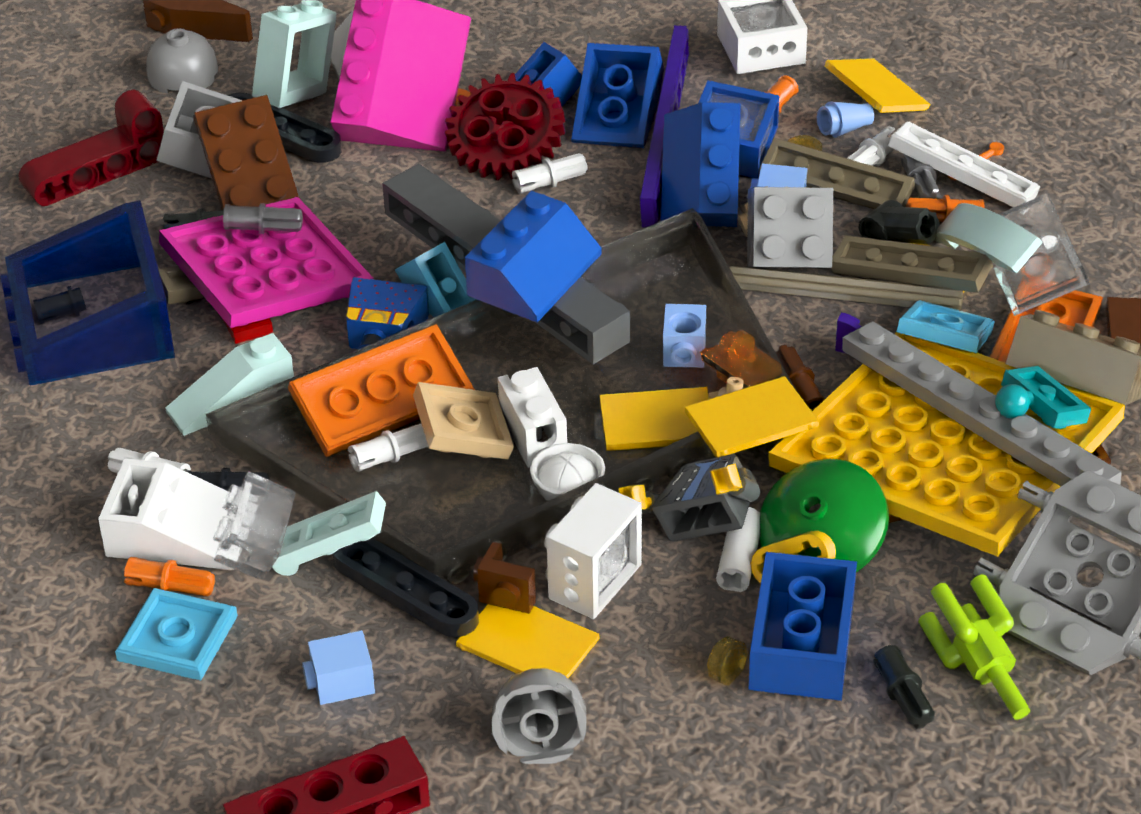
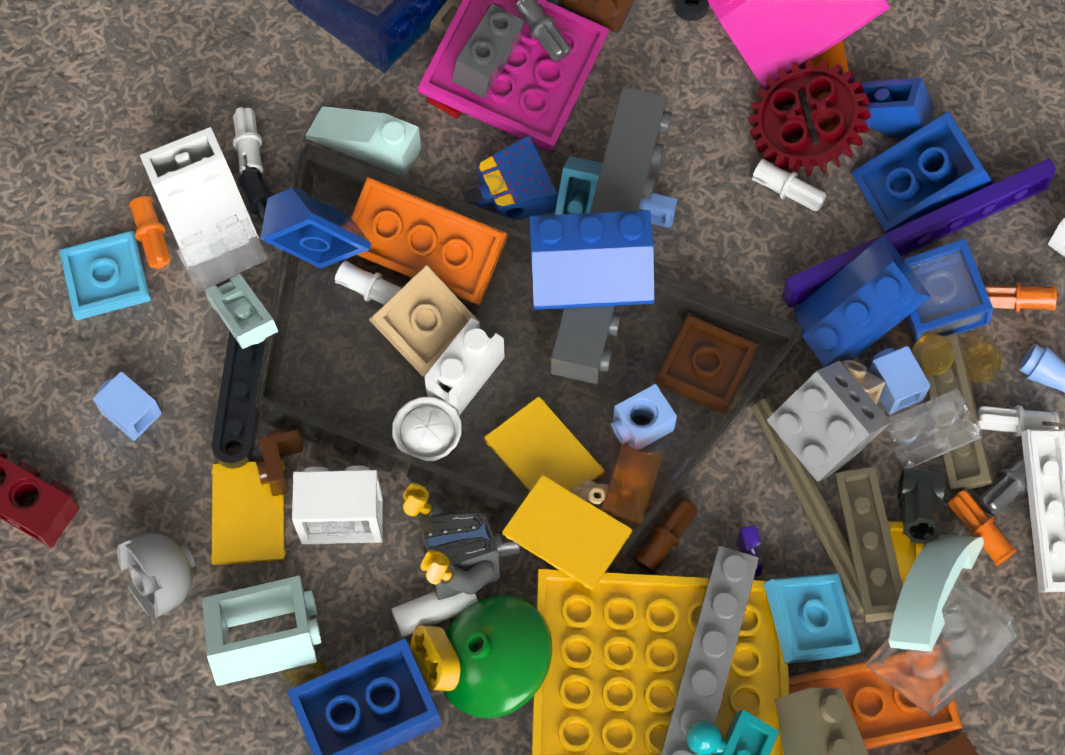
camera: 55 degrees right, 25 degrees up
(253, 250) = (488, 51): none -> dark grey brick
(308, 430) = (311, 229): none -> blue slope
(630, 683) = (265, 653): none -> light aqua window
(662, 281) = (706, 364): none -> reddish brown tile
(780, 153) = (933, 354): none -> clear yellow tile
(849, 174) = (932, 429): none -> clear brick

